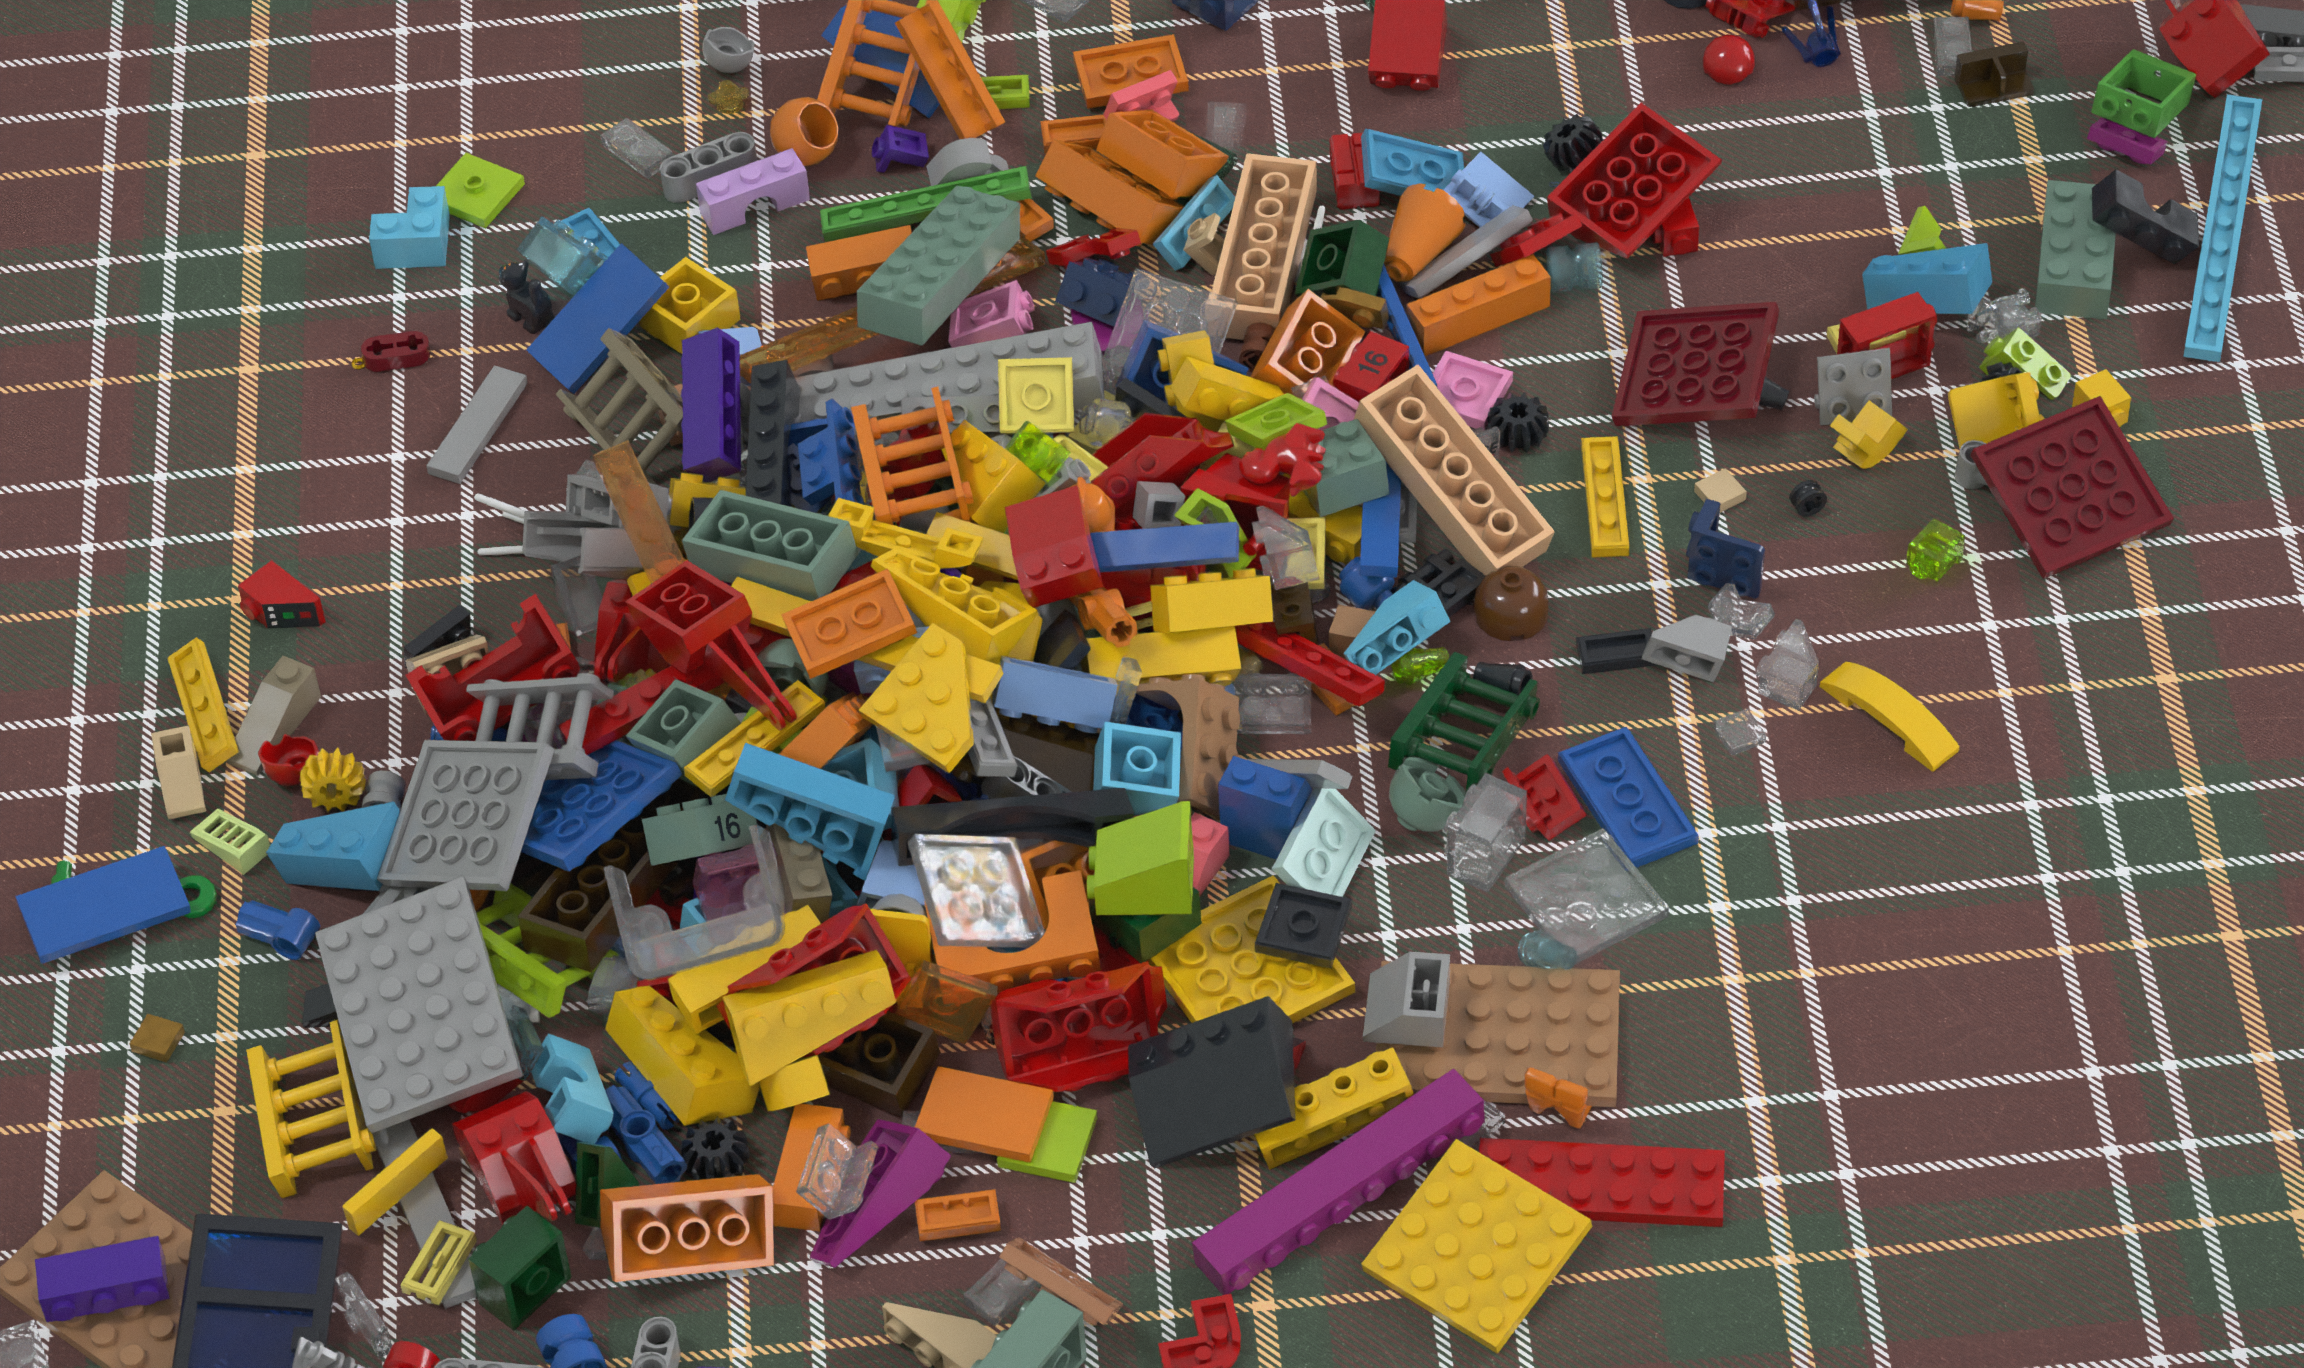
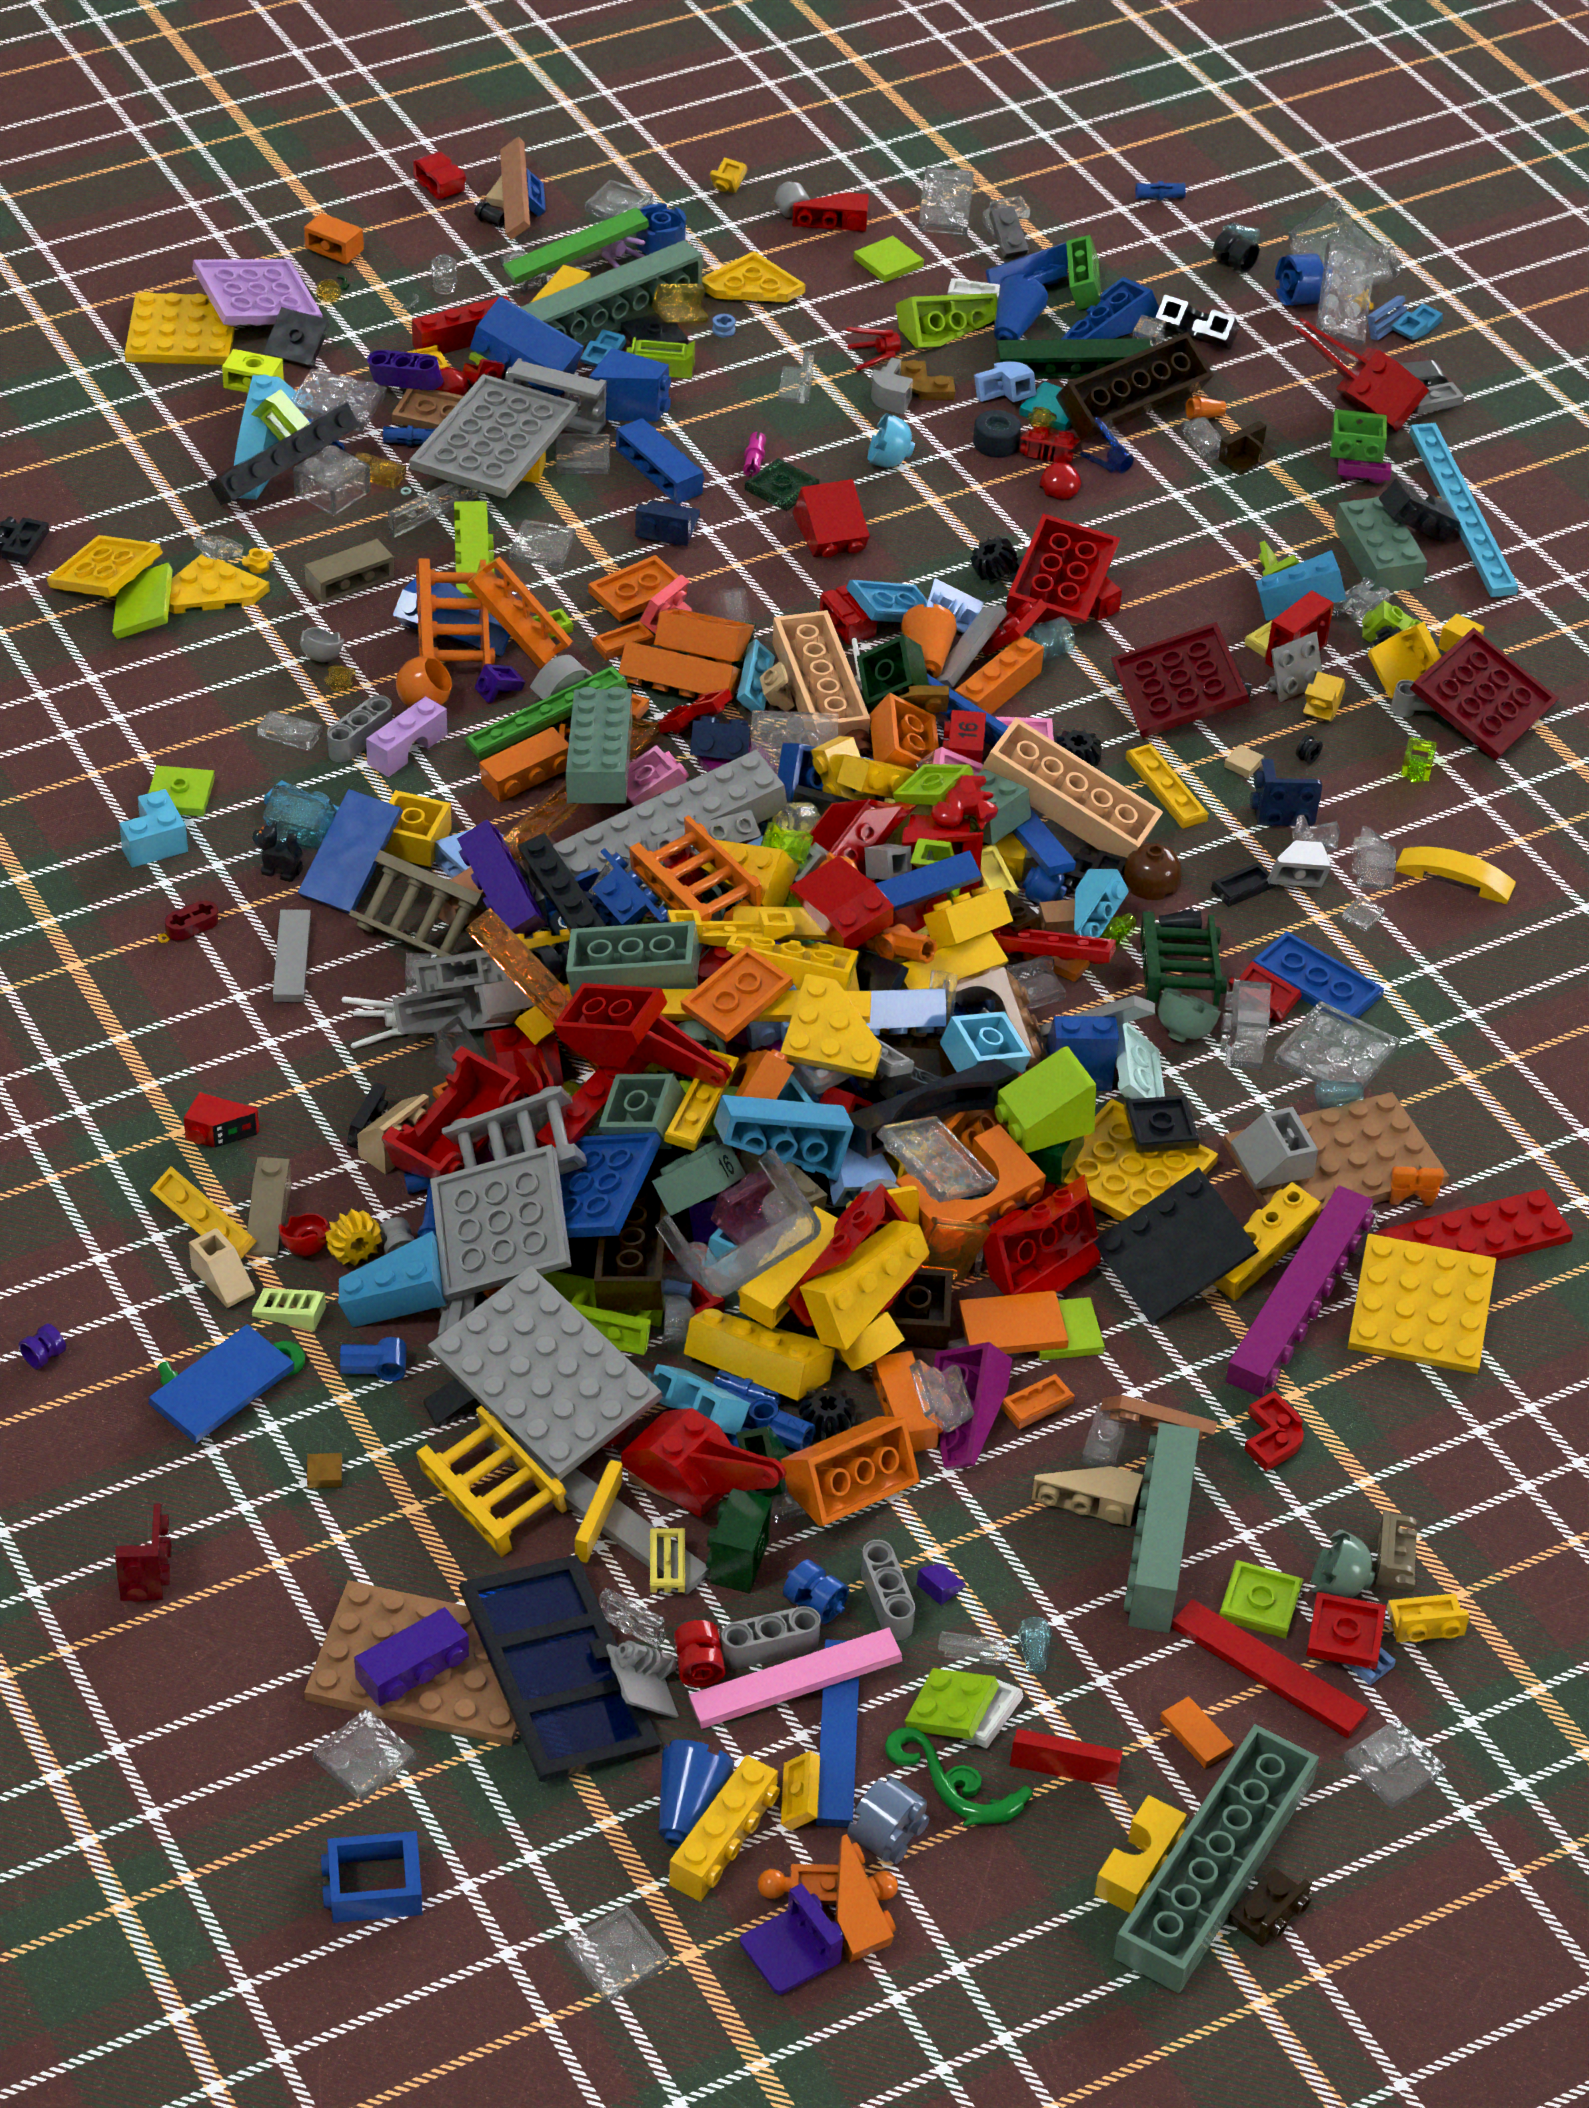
camera: 30 degrees left, 5 degrees down
(1037, 393) = (746, 809): light yellow tile -> none
(1288, 550) = (996, 868): clear slope -> none

